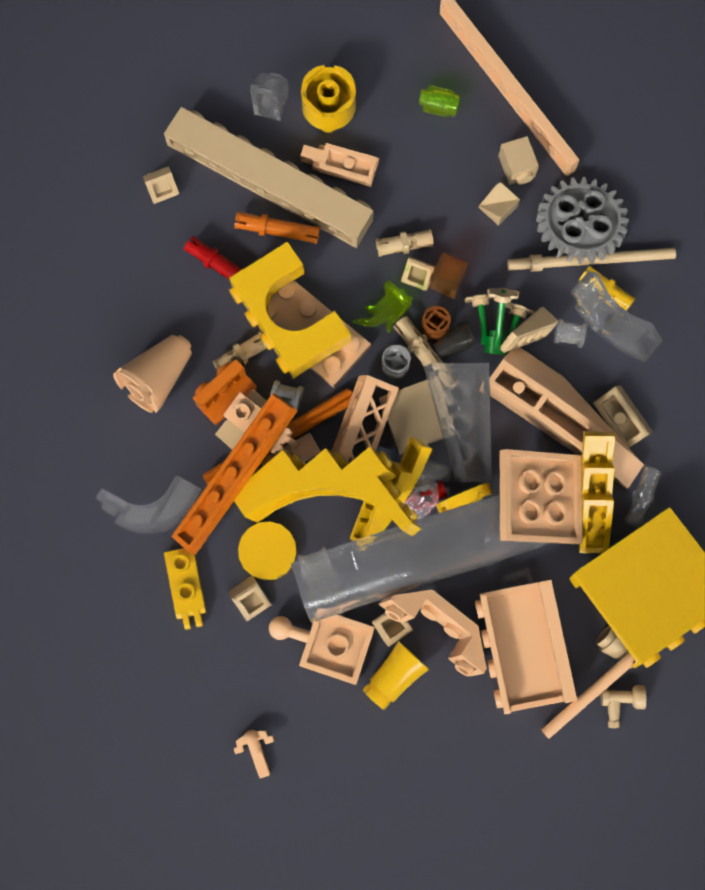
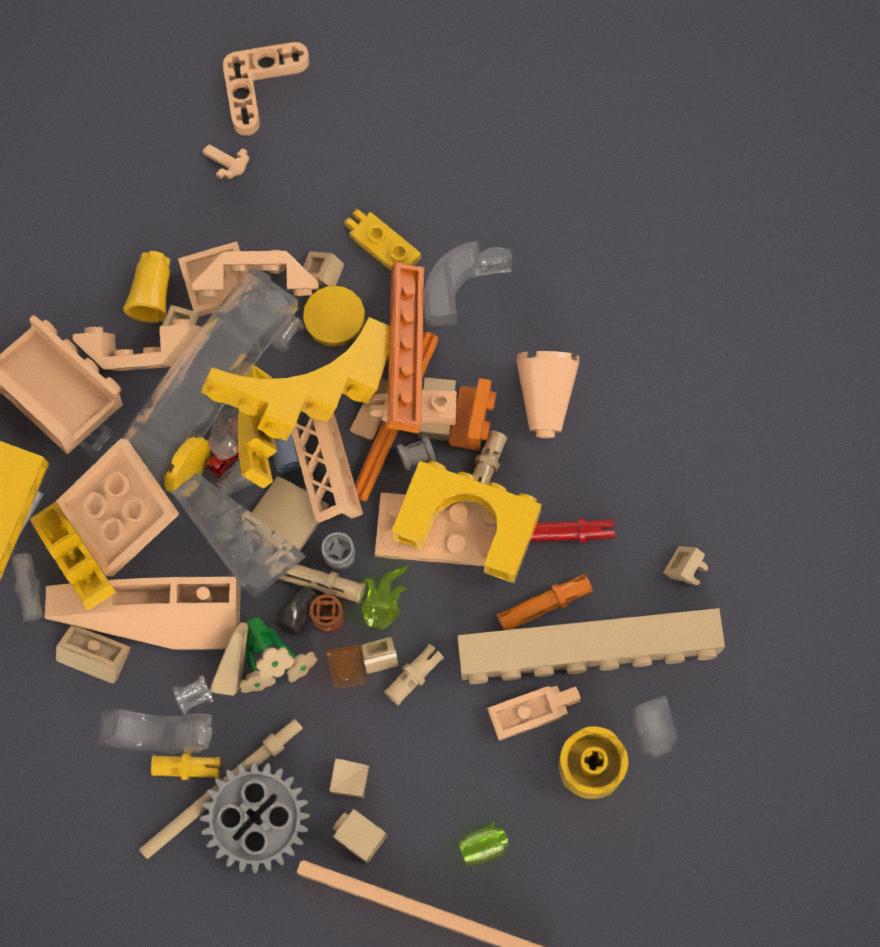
camera: 145 degrees right, 5 degrees down
(175, 820) = (252, 71): none -> light nougat beam
(343, 638) = (239, 261): none -> light nougat slope

